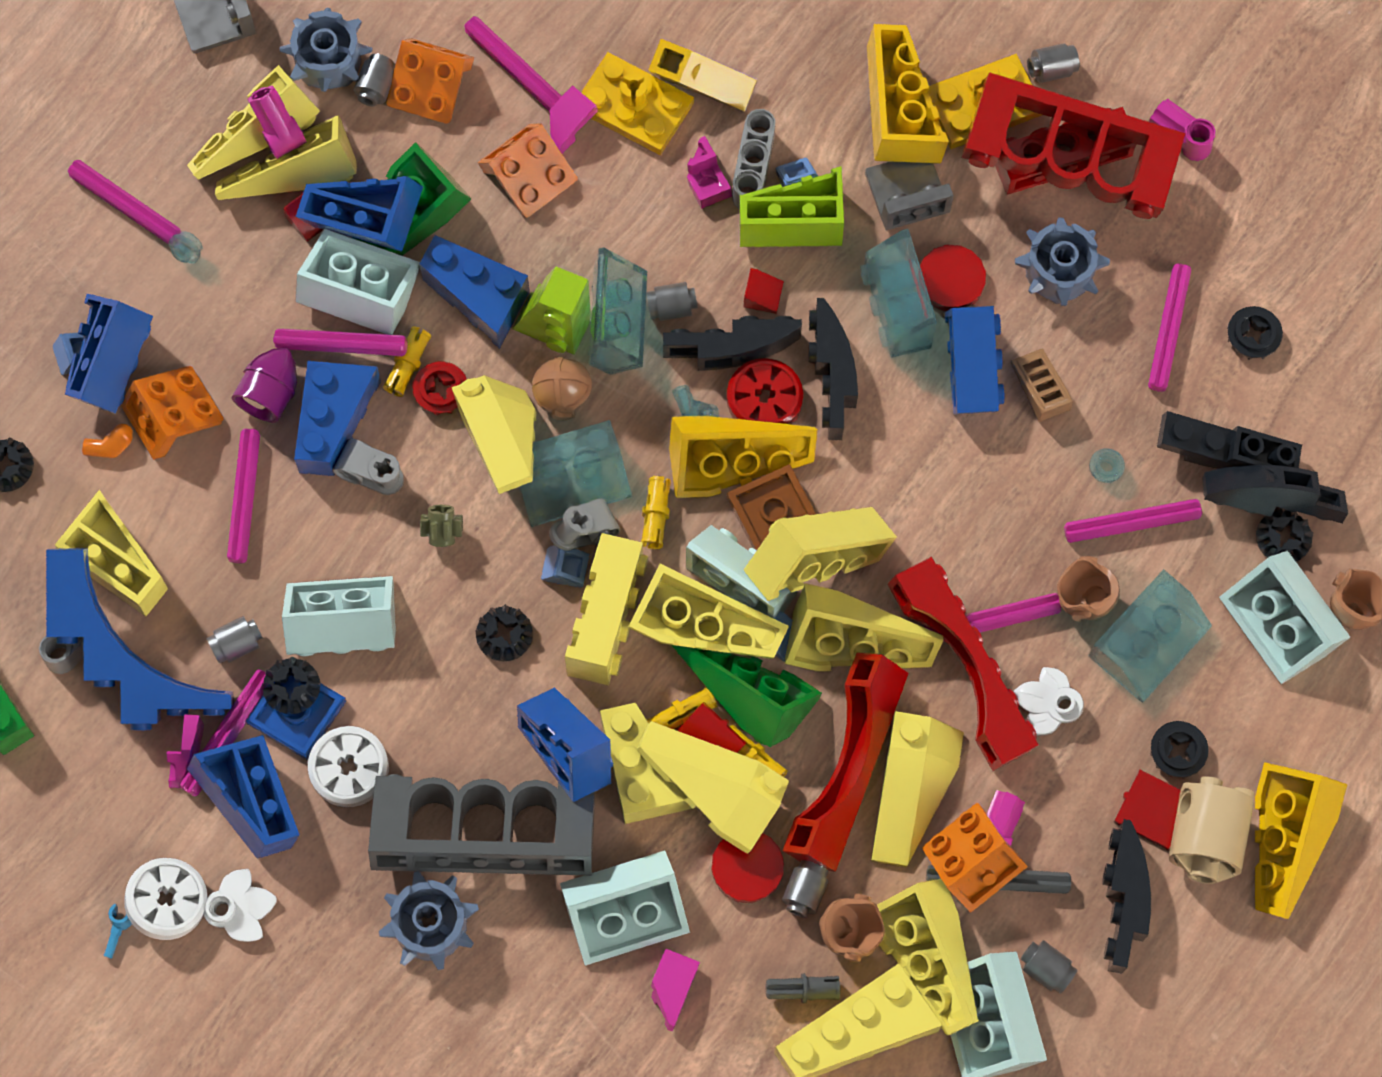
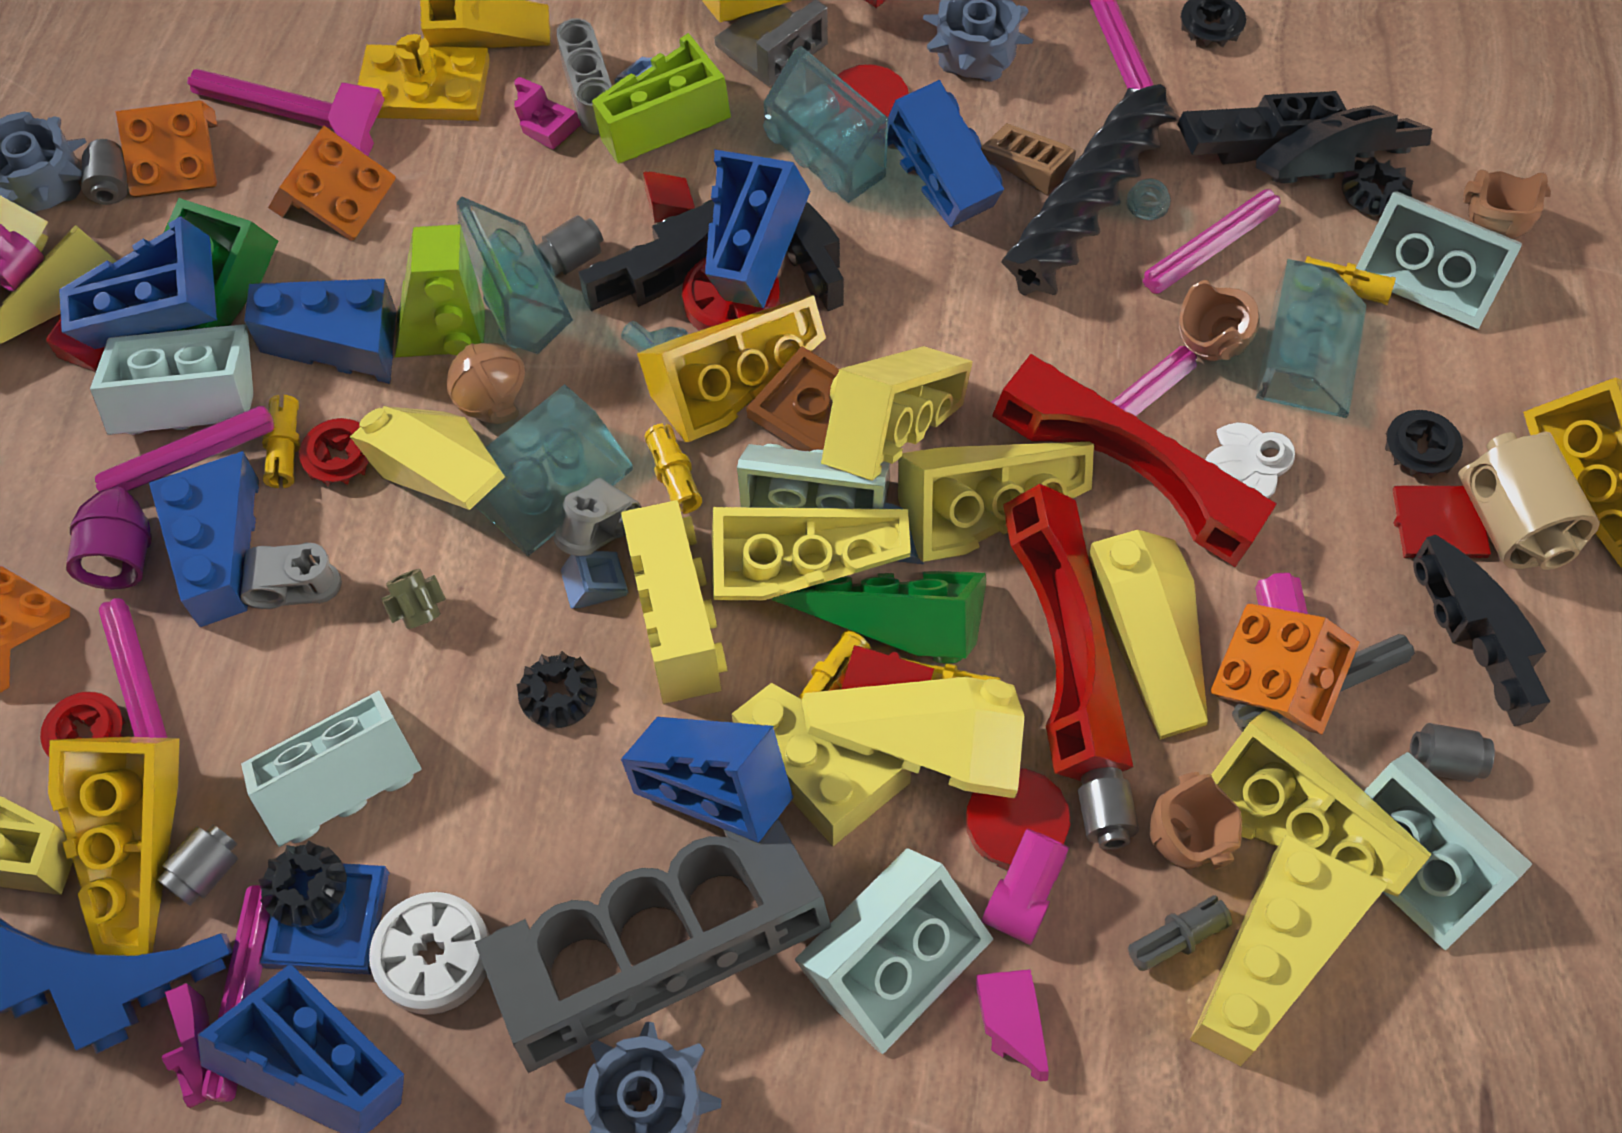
camera: 25 degrees left, 10 degrees down
(184, 507) = (88, 708): none -> red gear
(198, 588) = (118, 826): none -> yellow wedge
(717, 916) = (1022, 896): none -> dark pink piece
(796, 360) = (752, 224): none -> blue wedge
(1065, 438) = (1088, 187): none -> black piece
(1225, 618) = (1364, 283): none -> yellow pin

